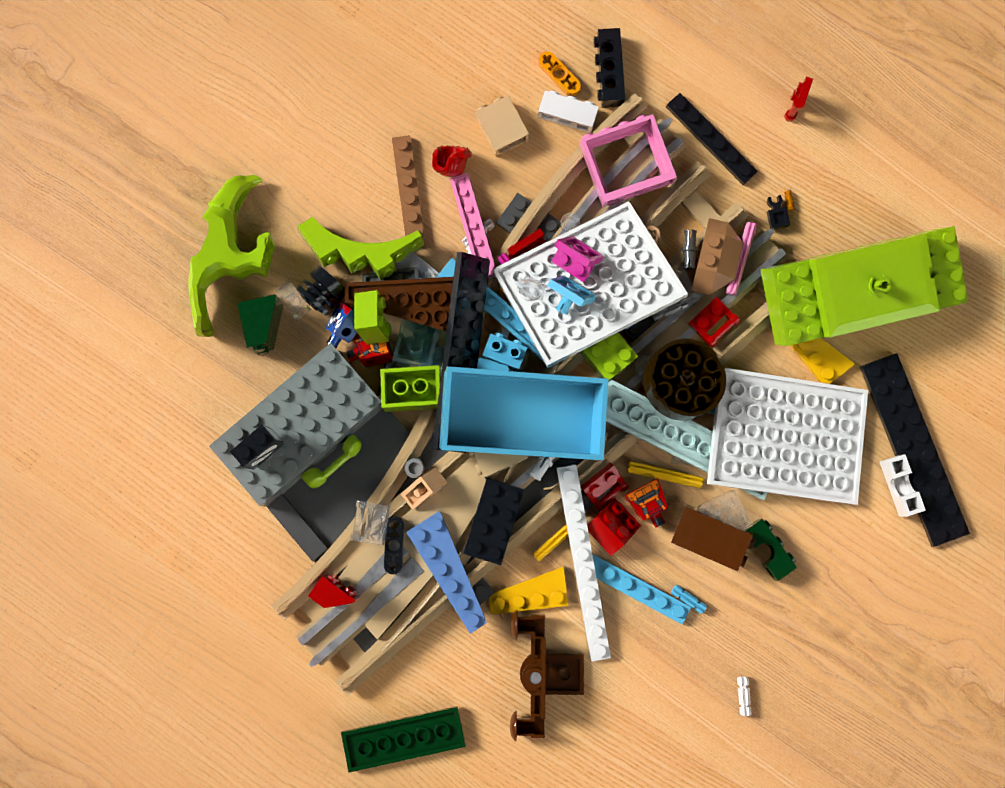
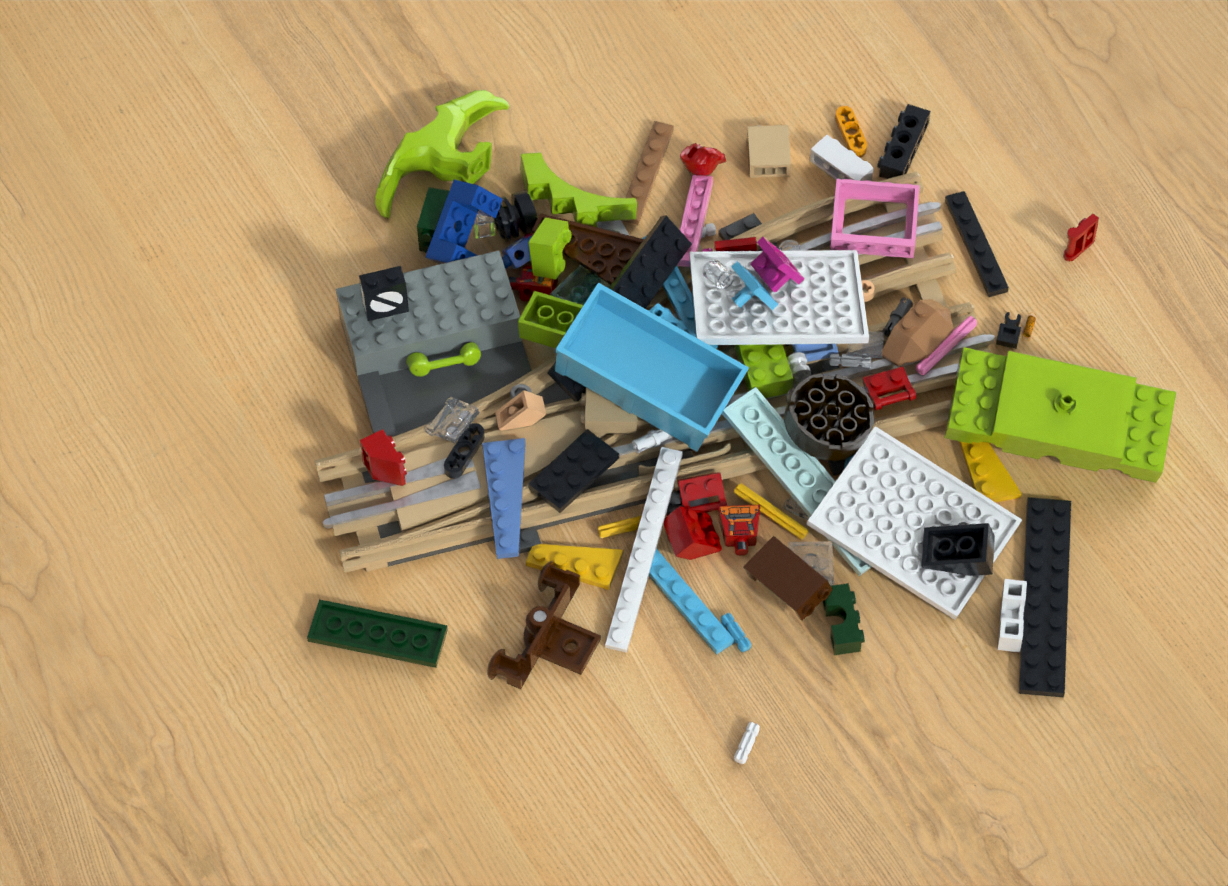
camera: 25 degrees right, 25 degrees down
(276, 313) = (462, 207): none -> blue plate
(632, 337) = (798, 366): none -> white wheel
(837, 449) = (959, 549): none -> black slope

